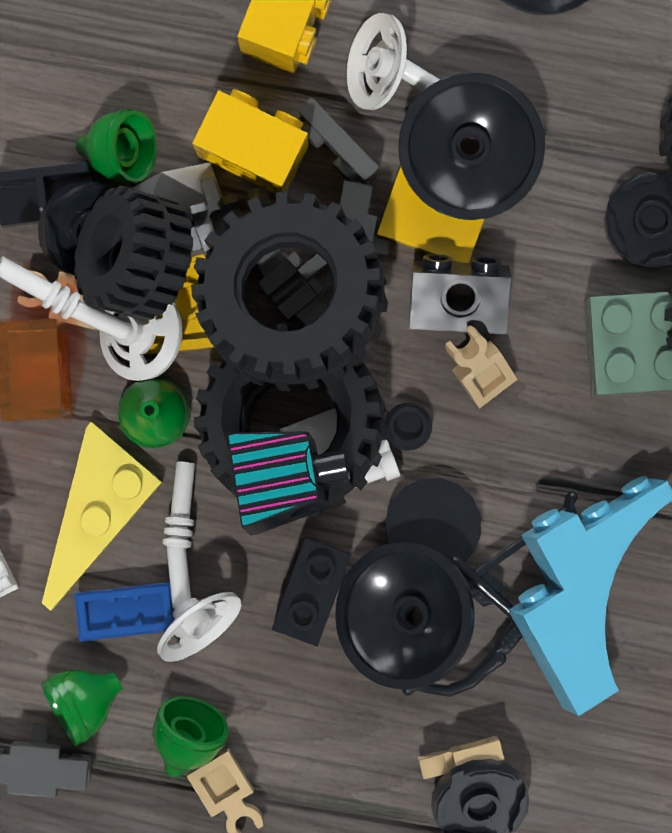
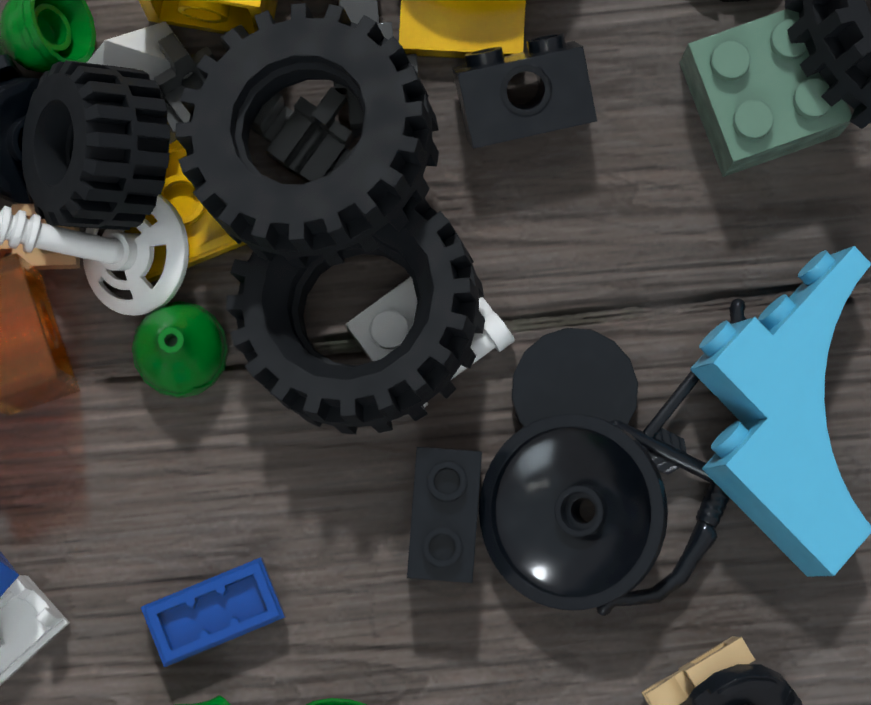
camera: 15 degrees left, 5 degrees down
(102, 500) = (144, 481): light yellow wing -> none
(193, 618) = (300, 592): white dish -> none
(281, 477) = (363, 369): black torso -> none
(408, 426) = (507, 275): black plate -> none
(480, 368) = (579, 176): tan plate -> none

